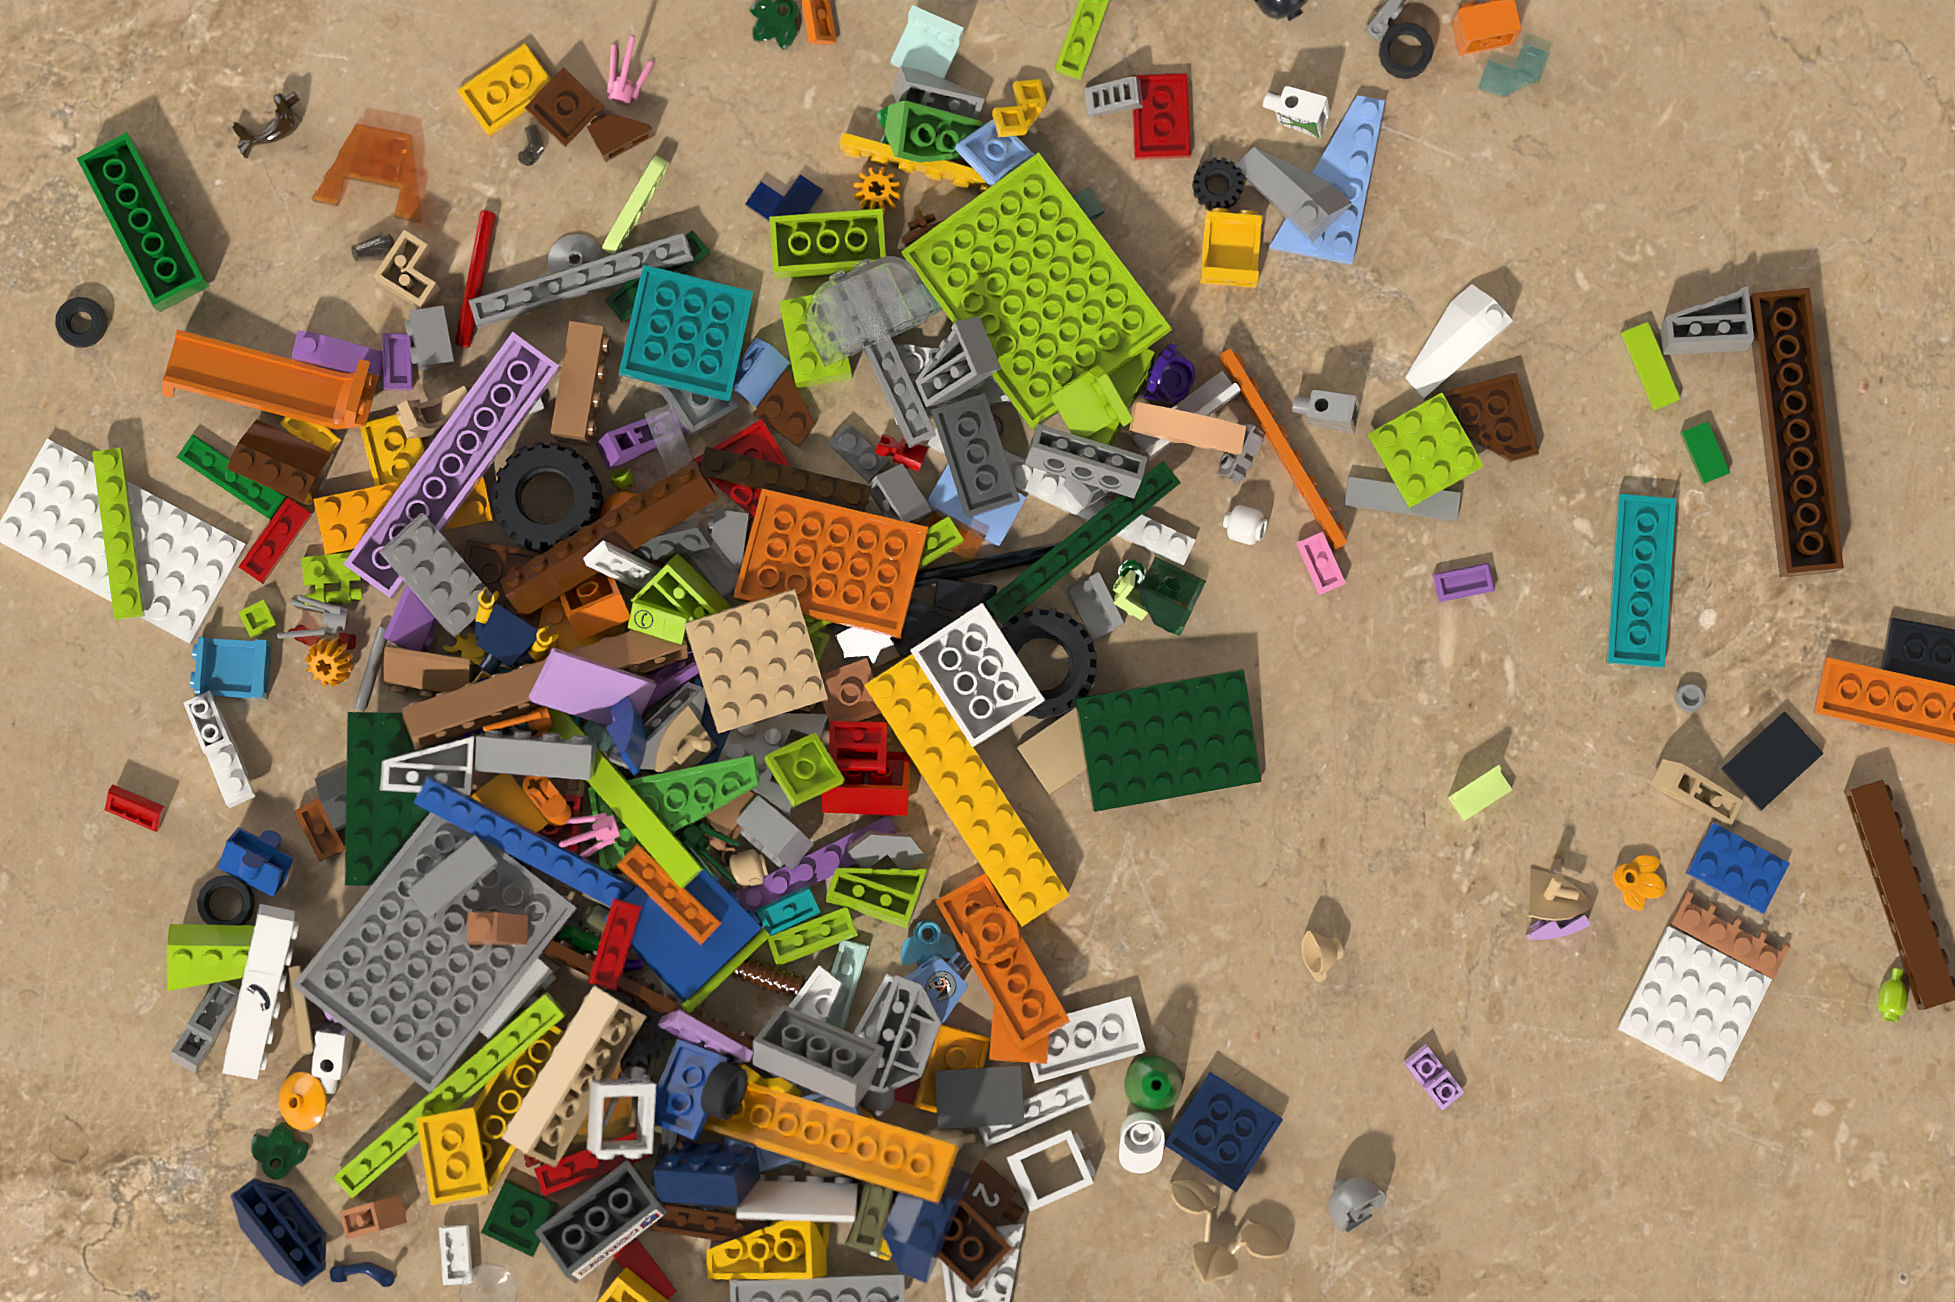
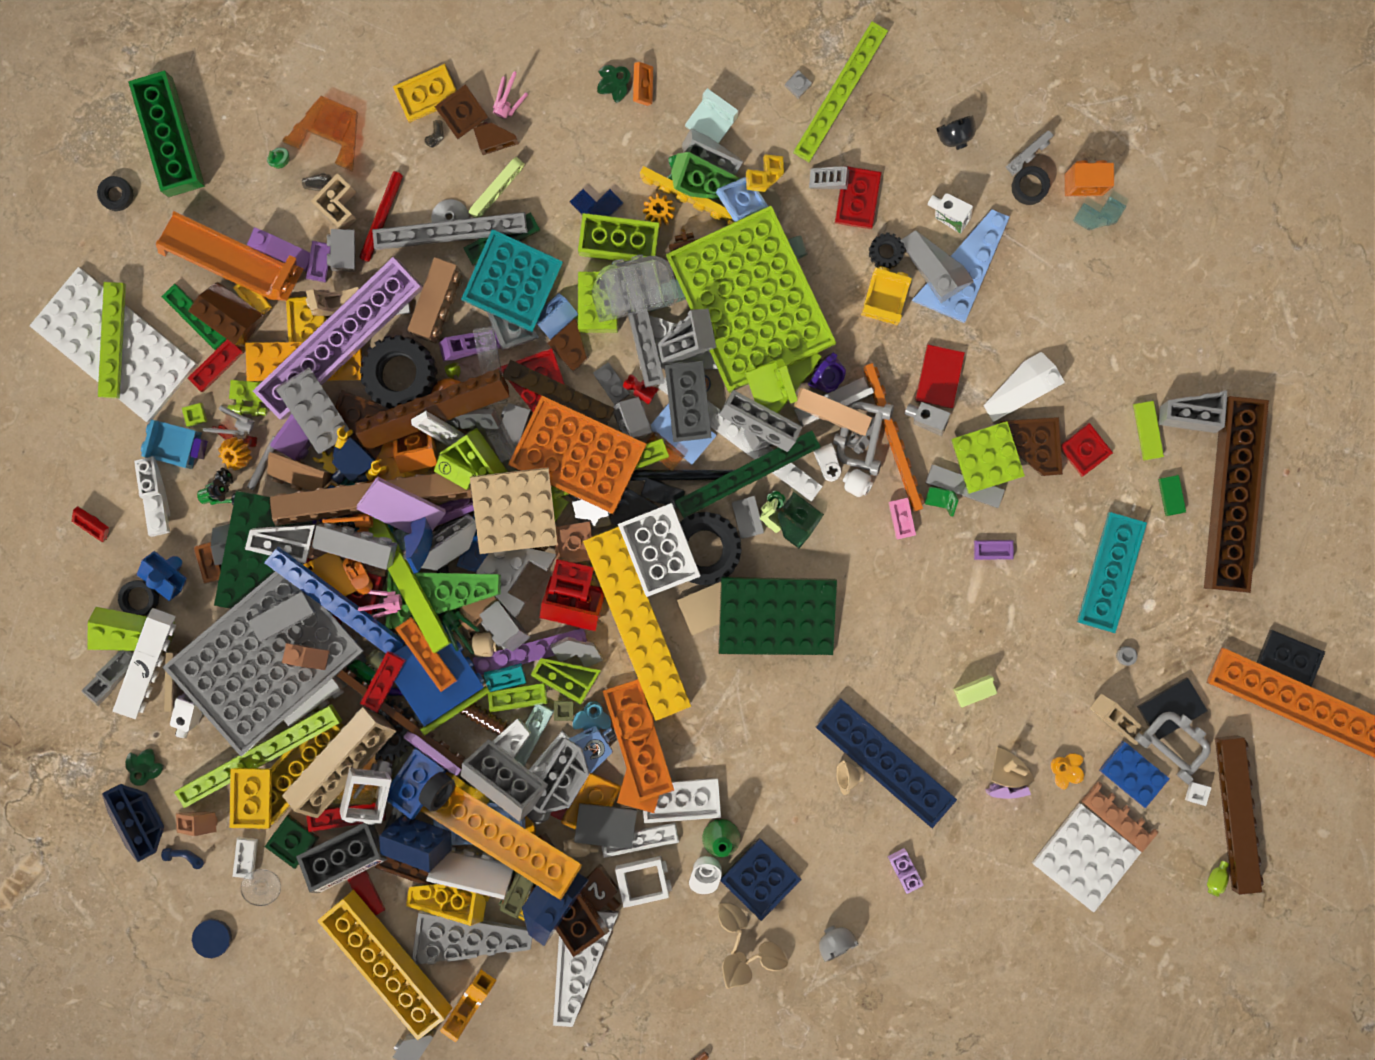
camera: 15 degrees right, 5 degrees up
(274, 663) = (199, 448): none -> dark purple tile
(284, 125) = (272, 88): dark brown animal -> none
(310, 224) = (278, 158): none -> green hat
(310, 1098) = (164, 738): light orange dish -> none
(314, 719) = (215, 492): none -> black plant
(683, 743) = (455, 555): tan shield -> none
(804, 769) = (531, 589): lime plate -> none
(883, 942) = (563, 710): none -> olive plate
(1193, 500) = (826, 459): none -> white piece
(1209, 466) = (841, 439): none -> light grey bar
(1332, 348) = (939, 376): none -> red tile
(1371, 924) = (886, 763): none -> dark blue plate
(1372, 524) = (942, 498): none -> green bracket
(1566, 412) = (1085, 449): none -> red tile
(1814, 790) = (1184, 723): none -> light grey bar
(1835, 876) = (1198, 793): none -> white plate

